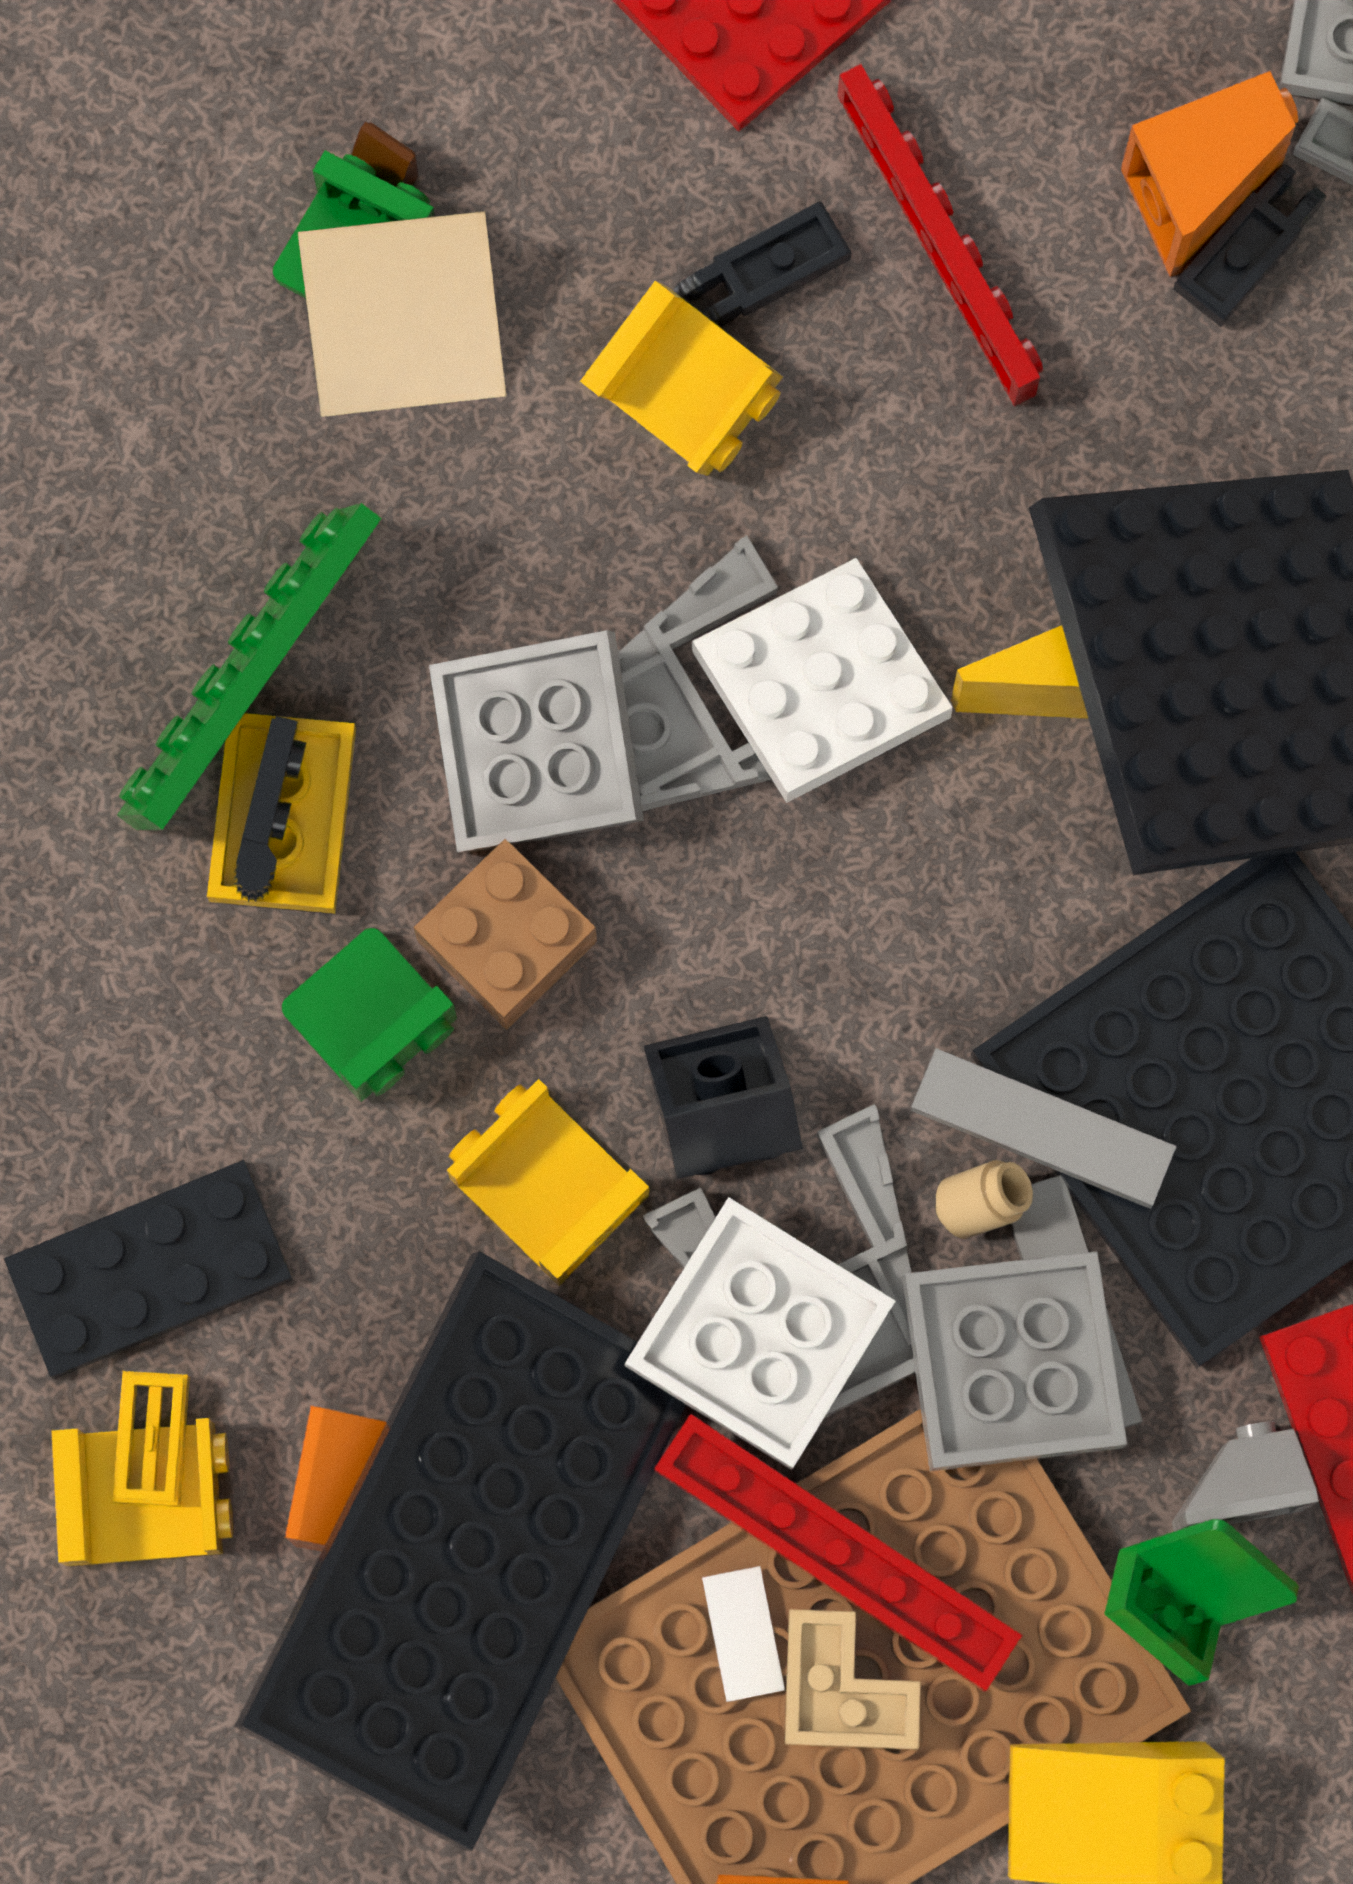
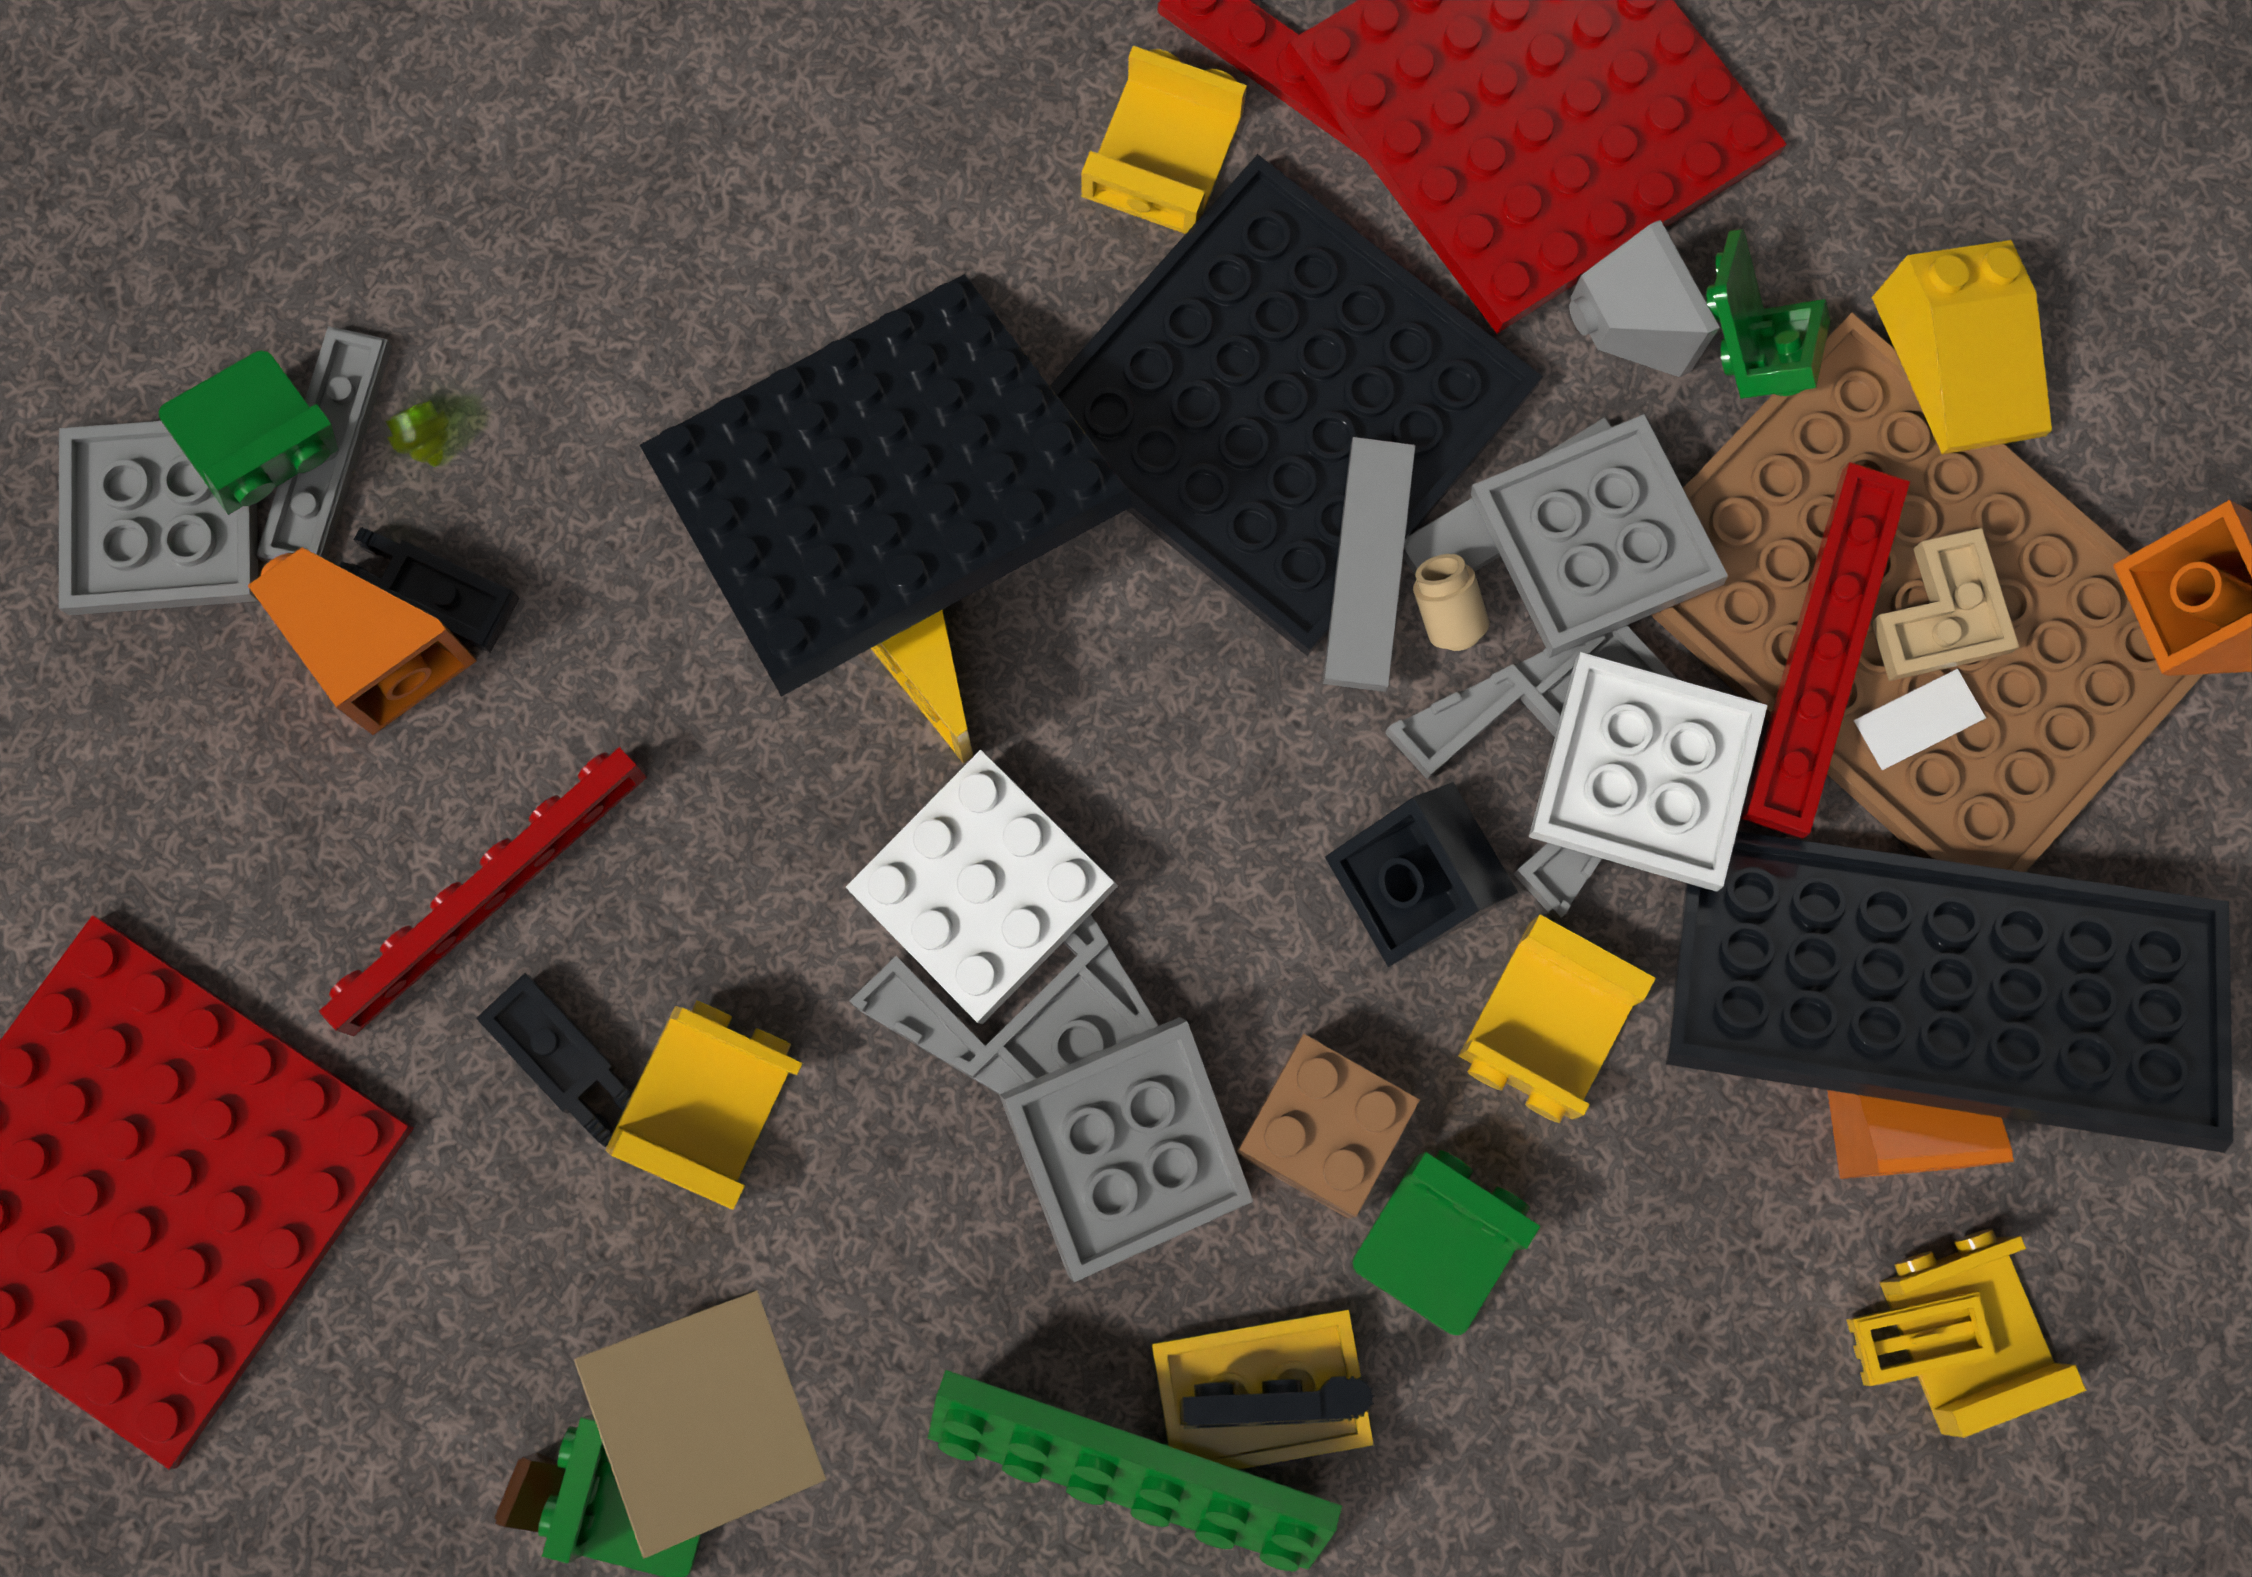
camera: 110 degrees left, 0 degrees up
(148, 1269) = (1757, 1394): black plate -> none

